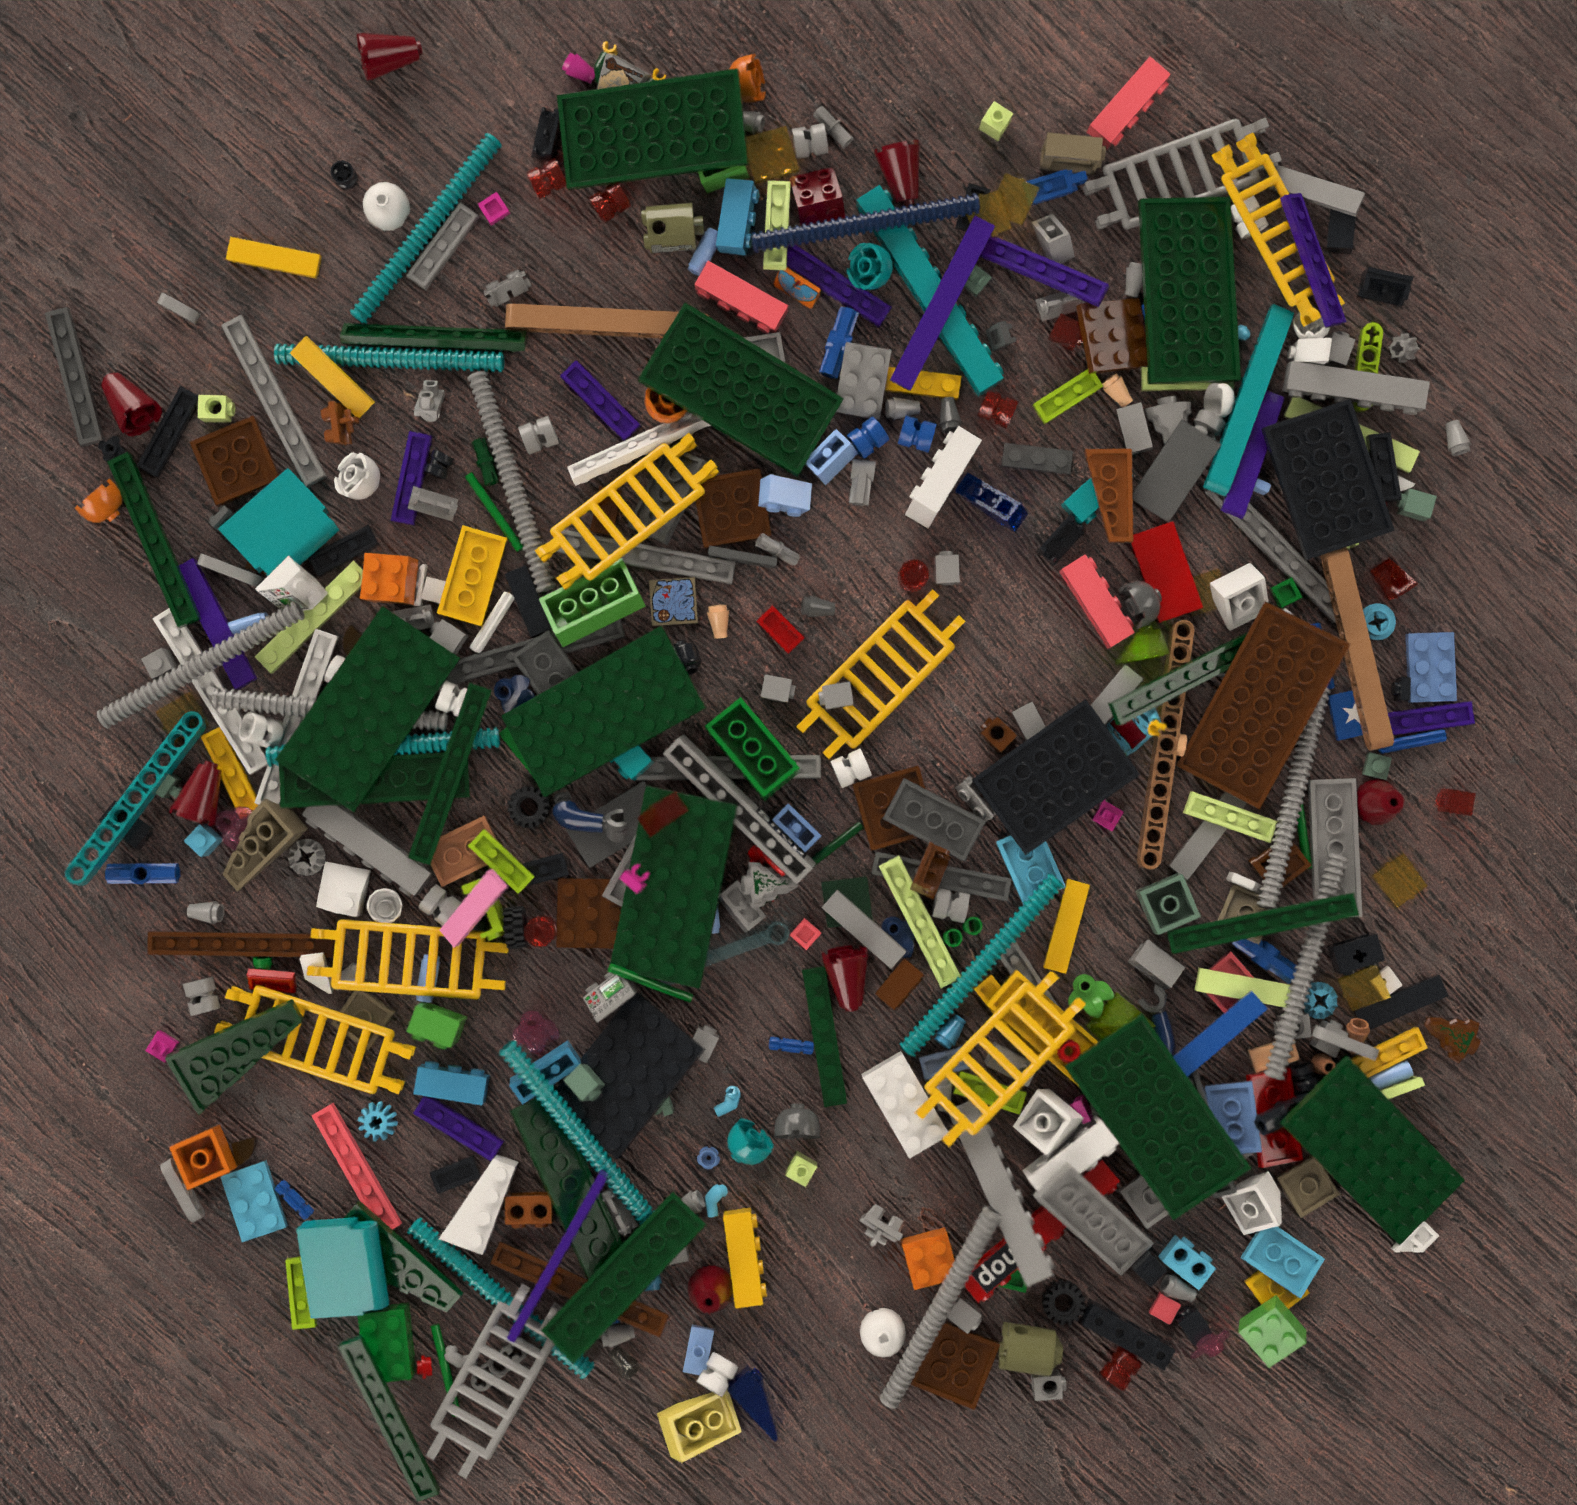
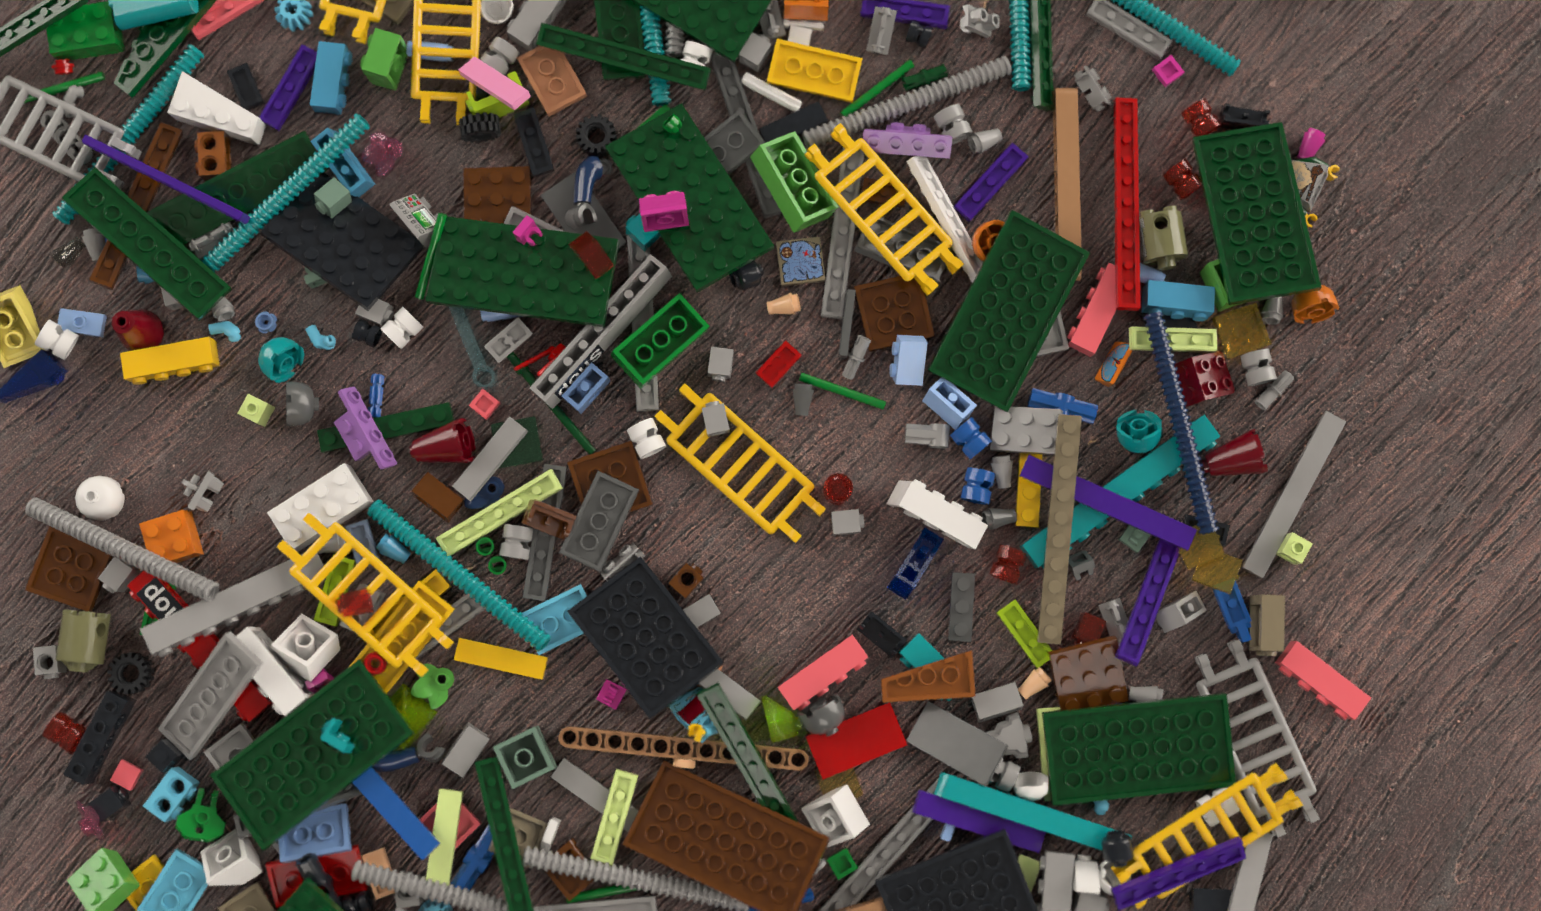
camera: 90 degrees right, 5 degrees down
(501, 861) = (542, 110): lime plate -> none
(517, 693) = (704, 117): dark blue plate -> none
(526, 725) = (672, 124): none -> green hinge
(540, 931) = (477, 151): clear red wheel -> none
(553, 482) = (908, 141): none -> medium lavender bracket
(556, 405) = (984, 140): none -> light grey cone
(621, 736) = (663, 211): none -> dark pink slope
(633, 261) = (1126, 204): none -> red plate
(723, 1016) = (401, 327): none -> white wheel
(726, 1052) = (367, 333): none -> black wheel
(764, 884) = (528, 358): light grey rock -> none
(811, 564) = (849, 393): none -> green bar
(829, 1060) = (361, 432): none -> medium lavender bracket
(837, 285) = (1118, 401): dark purple tile -> none
(939, 116) = (1293, 494): none -> light grey tile
(966, 353) = (1059, 529): none -> dark tan plate
(1010, 1067) = (355, 603): none -> clear red brick
(1148, 1088) = (337, 740): none -> teal bracket
(1176, 1288) = (145, 785): light grey cone -> none
(1212, 1227) = (201, 817): none -> green hinge
(1287, 318) = (1117, 848): none -> black head

